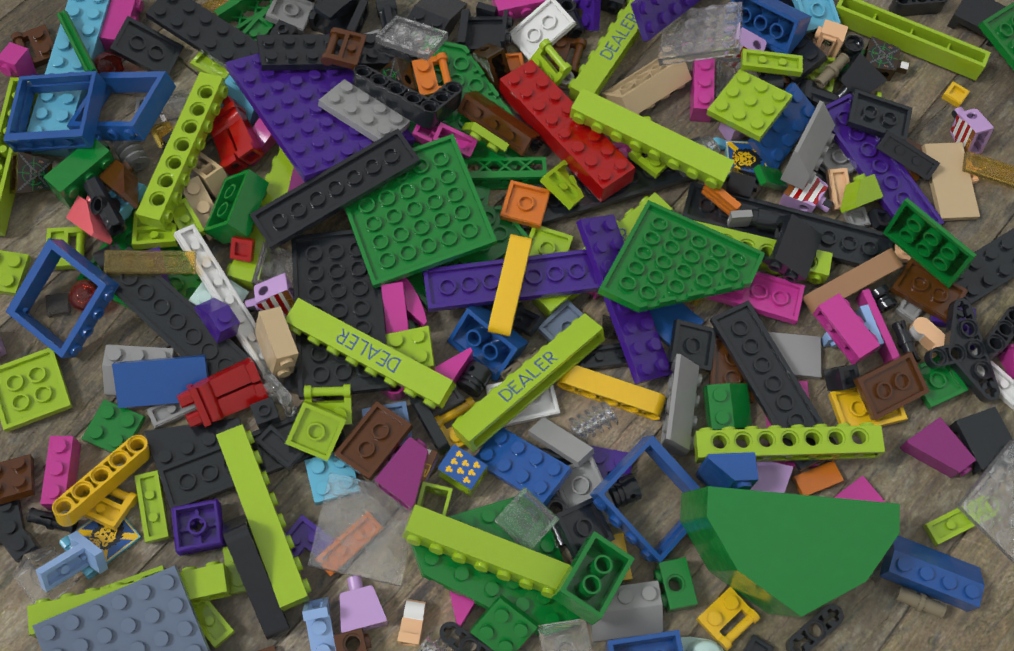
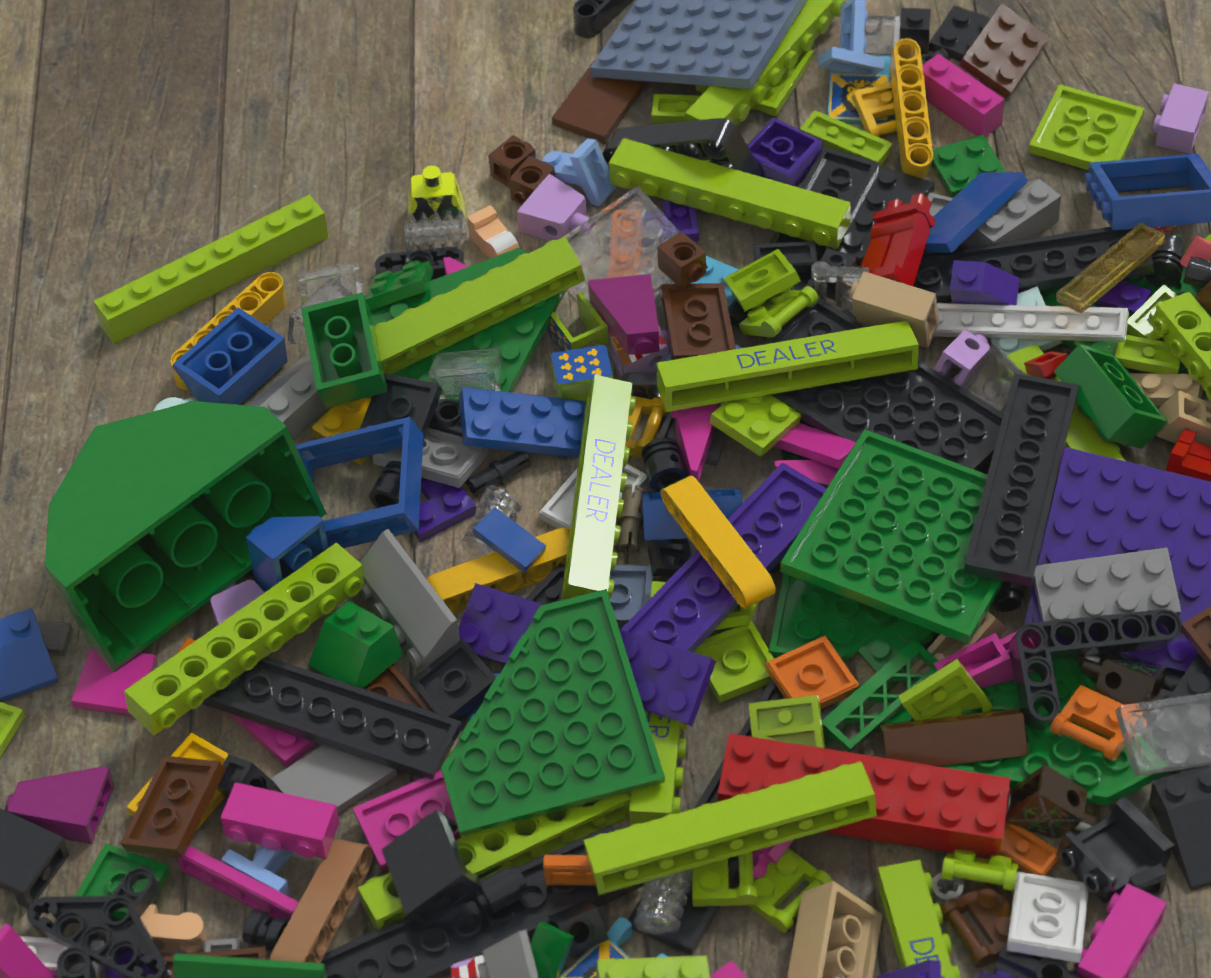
camera: 145 degrees right, 15 degrees down
(350, 484) = (681, 260): none -> reddish brown brick
(561, 442) = (506, 472): light grey tile -> none
(601, 390) = (509, 539): none -> blue tile
(739, 218) = (532, 862): light grey tile -> none
(905, 340) = (196, 903): black pin -> none

